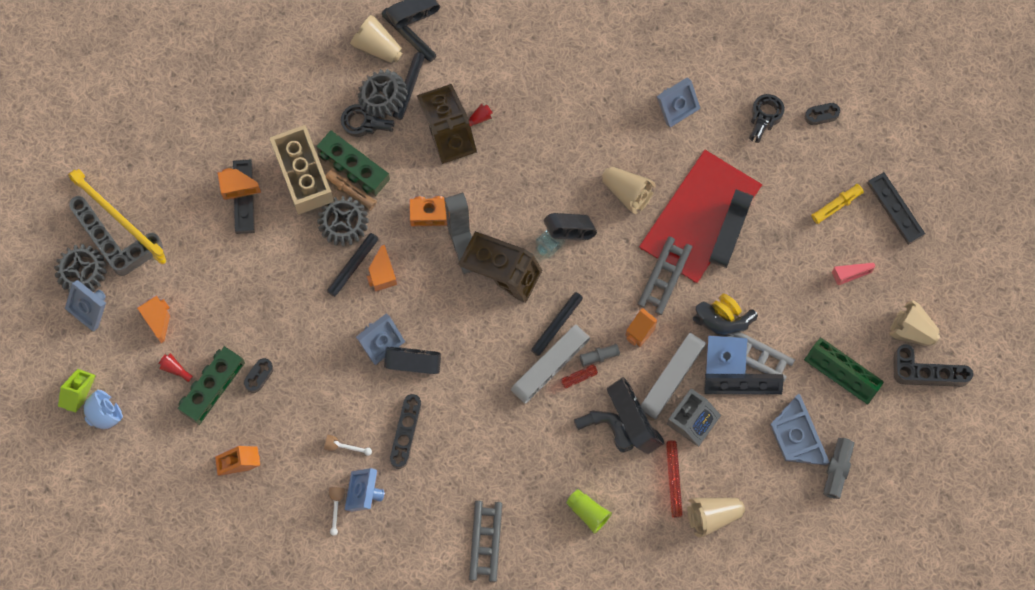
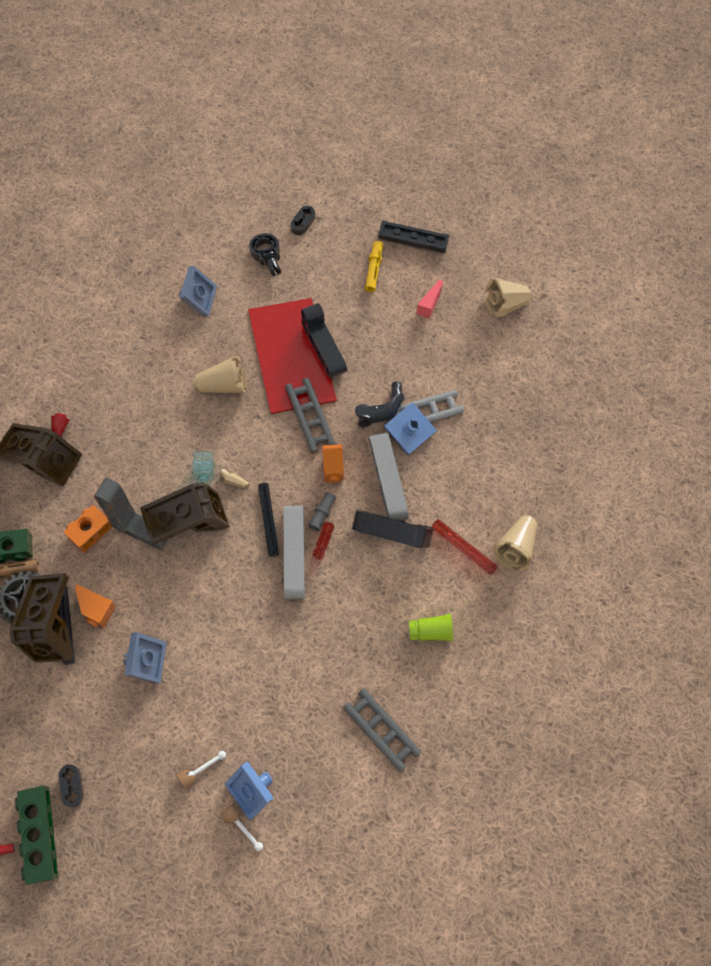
camera: 50 degrees left, 5 degrees down
(237, 460) = (121, 873): orange slope -> none
(332, 248) = (37, 626): none -> dark brown bracket
(405, 431) = (233, 710): black beam -> none
(412, 360) = (186, 650): black beam -> none
(562, 271) = (233, 479): none -> tan bar
(570, 226) = (208, 440): black beam -> none
(621, 440) = (400, 552): black piece -> none
(694, 417) = (432, 490): dark grey slope -> none
(726, 307) = (375, 394): yellow wheel -> none
(743, 384) = (440, 436): black plate -> none
(798, 435) = (511, 436): sand blue wing -> none
(838, 468) = (560, 432): dark grey piece -> none
(843, 372) = (494, 367): dark green fence -> none
(932, 371) = (529, 324): black beam -> none

